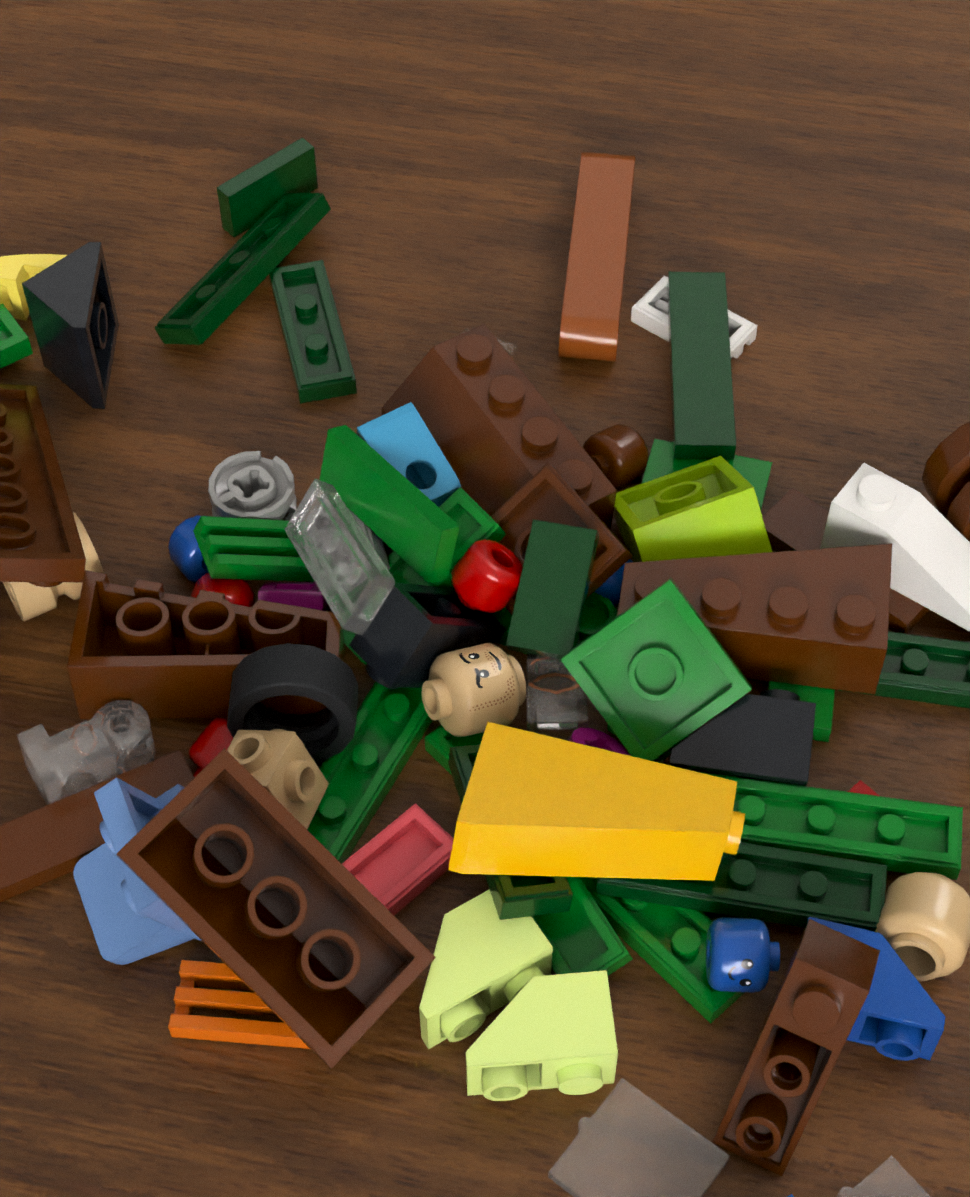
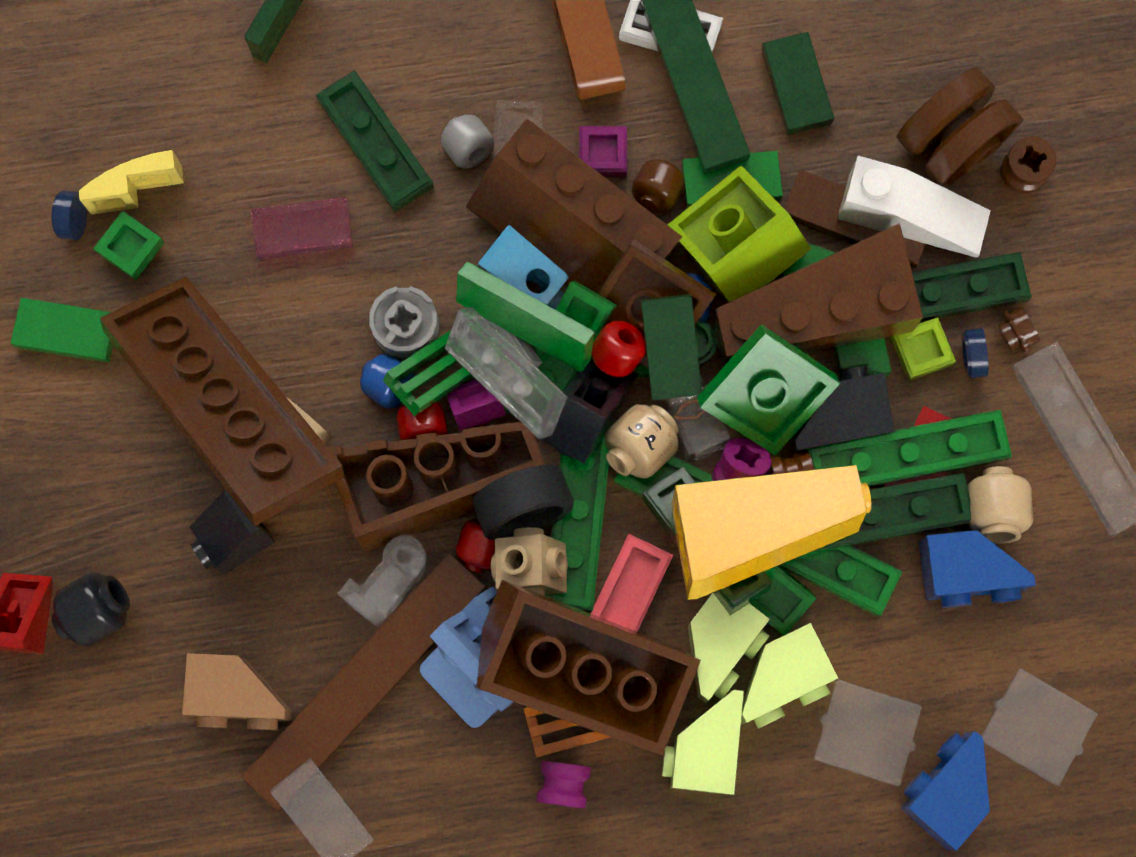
camera: 20 degrees left, 25 degrees up
(76, 321) = (197, 220): black slope -> none
(186, 1071) = (563, 784): none -> magenta wheel
(189, 384) = (302, 228): none -> clear pink tile
(242, 269) = (295, 101): dark green tile -> none
(400, 1096) = (707, 750): none -> yellowish green slope
(406, 348) = (467, 141): none -> light grey piece
(573, 404) = (604, 149): none -> magenta tile
(740, 955) = (890, 578): blue piece -> none
(797, 1046) = (951, 628): reddish brown slope -> none
(823, 411) = (797, 83): none -> dark green tile
(883, 724) = (923, 350): none -> lime tile
(949, 741) = (975, 353): none -> dark blue tile

